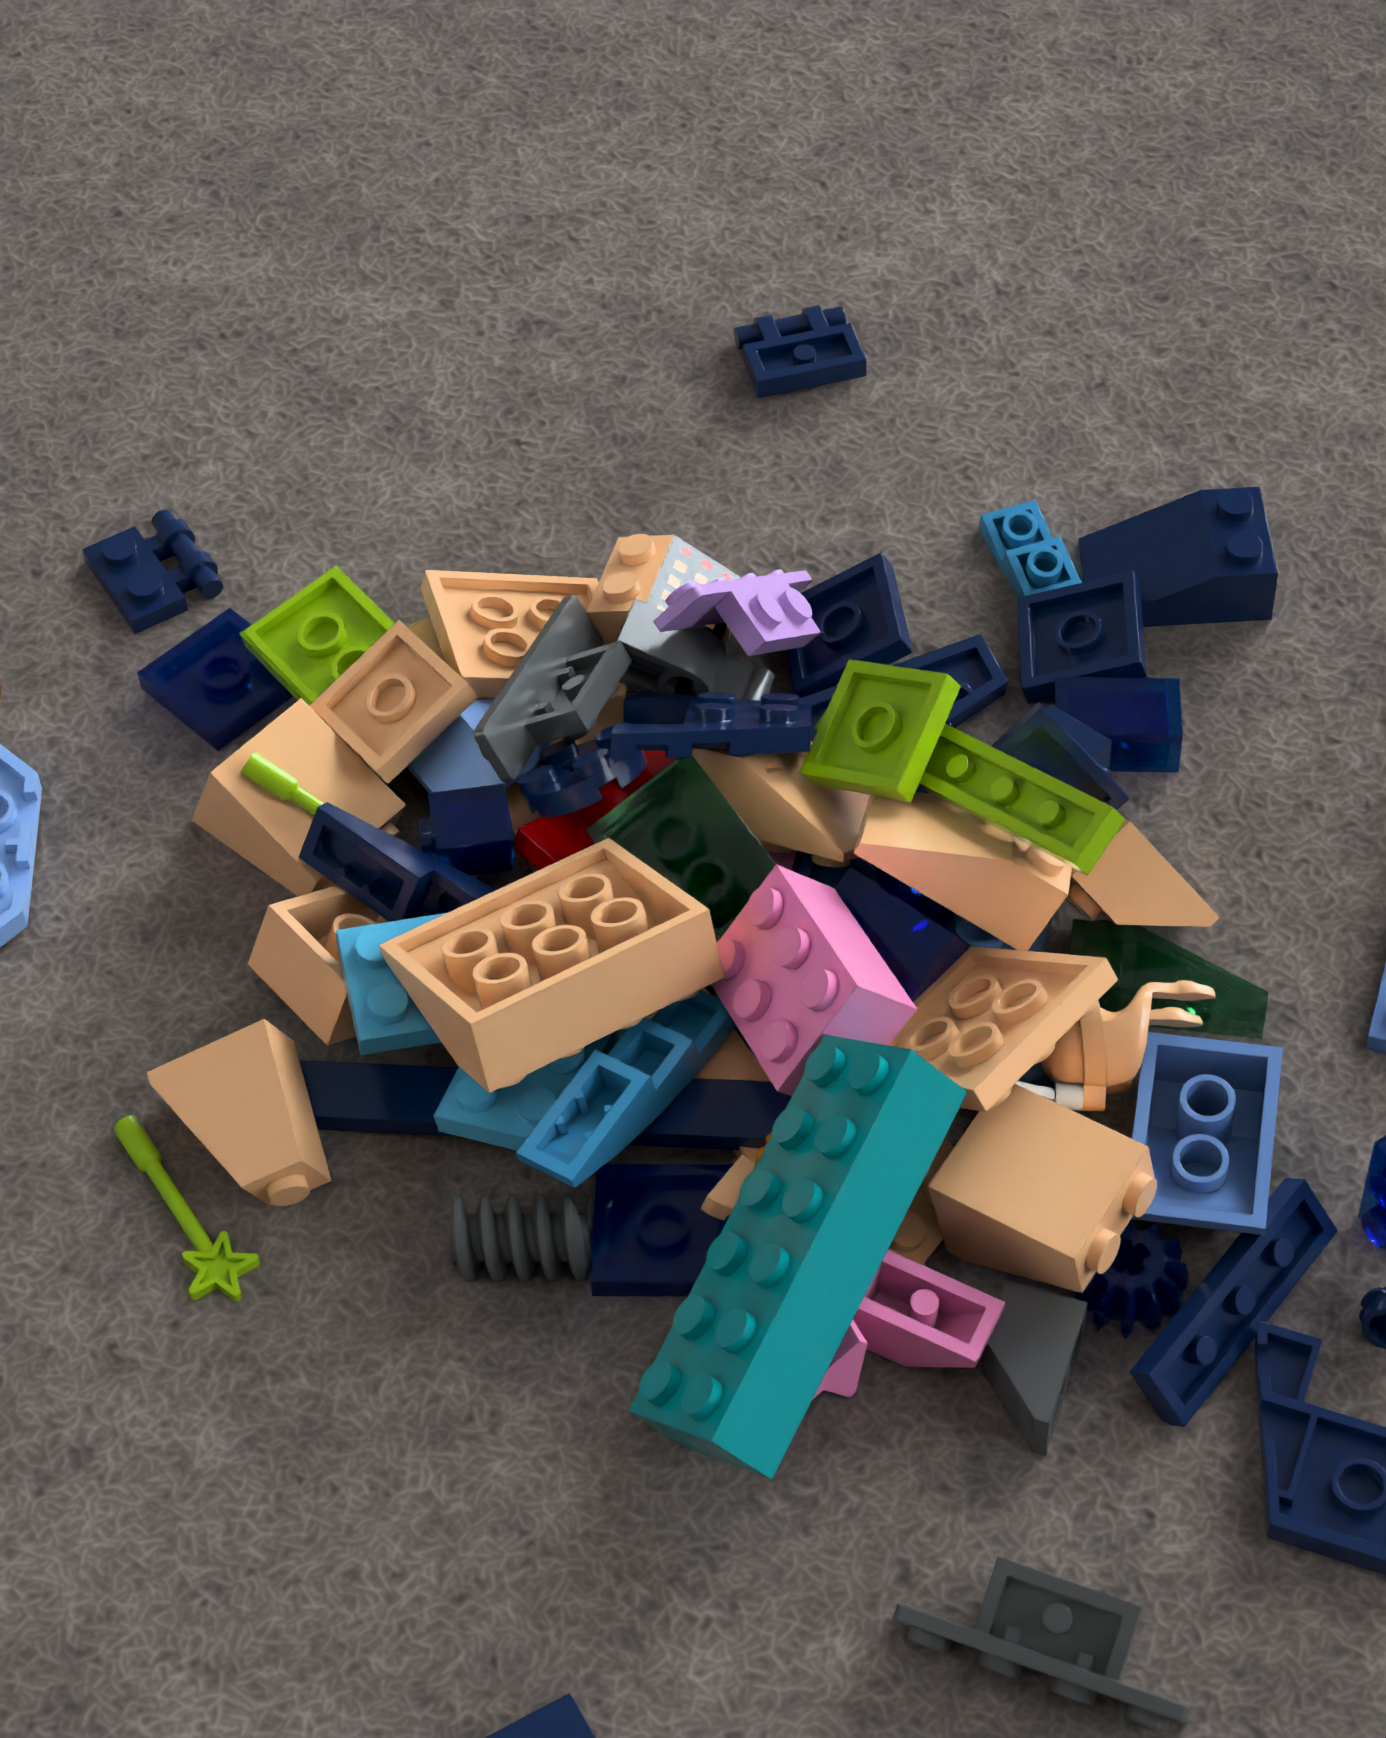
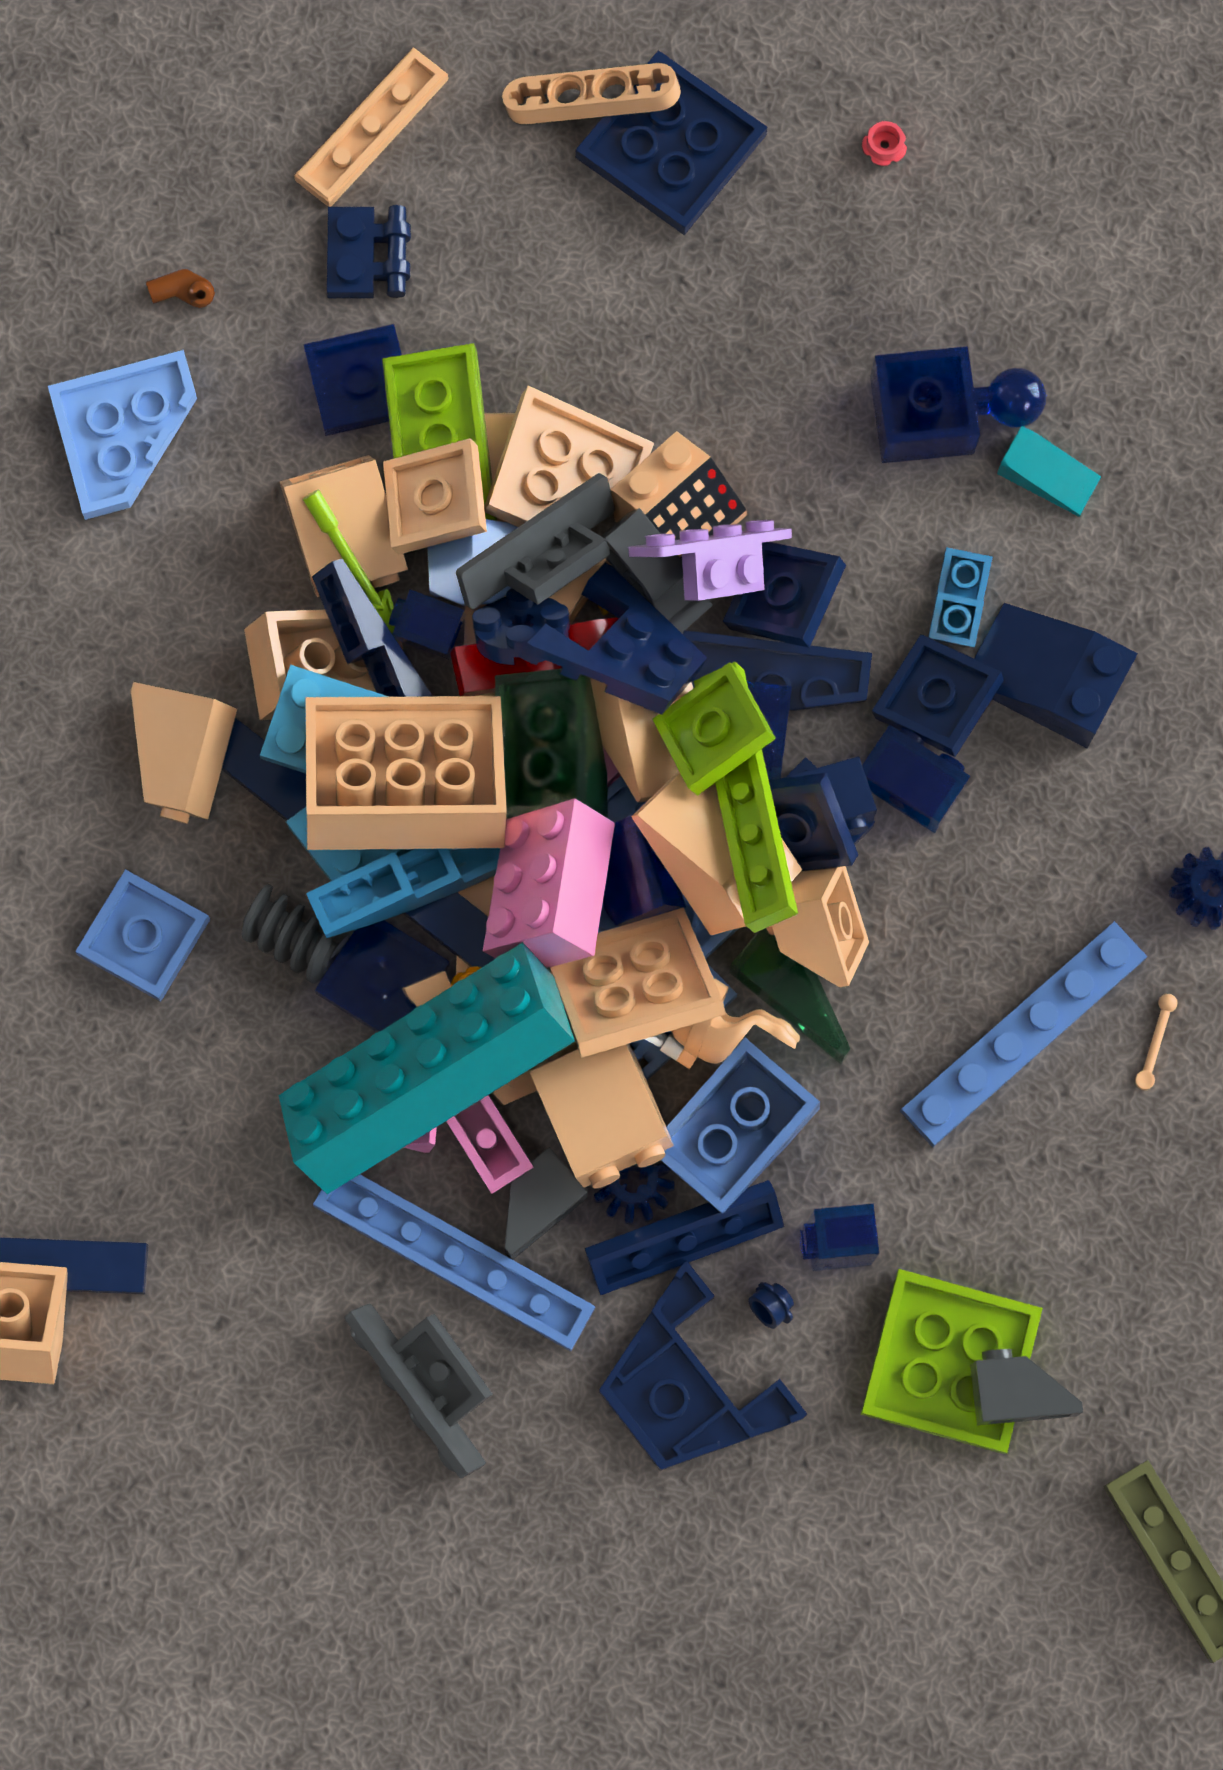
camera: 25 degrees right, 25 degrees up
(83, 470) = (371, 127): none -> light nougat tile
(212, 1262) = (110, 833): lime piece -> none
(260, 358) = (590, 101): none -> light nougat beam
(330, 1345) = (142, 935): none -> medium blue plate
(423, 334) = (674, 156): none -> dark blue plate
(645, 238) = (884, 132): none -> coral plate
(800, 350) = (917, 327): dark blue plate -> none
(873, 404) = (952, 403): none -> clear blue brick
(979, 1482) = (458, 1259): none -> medium blue plate
(1028, 411) = (1048, 471): none -> teal slope

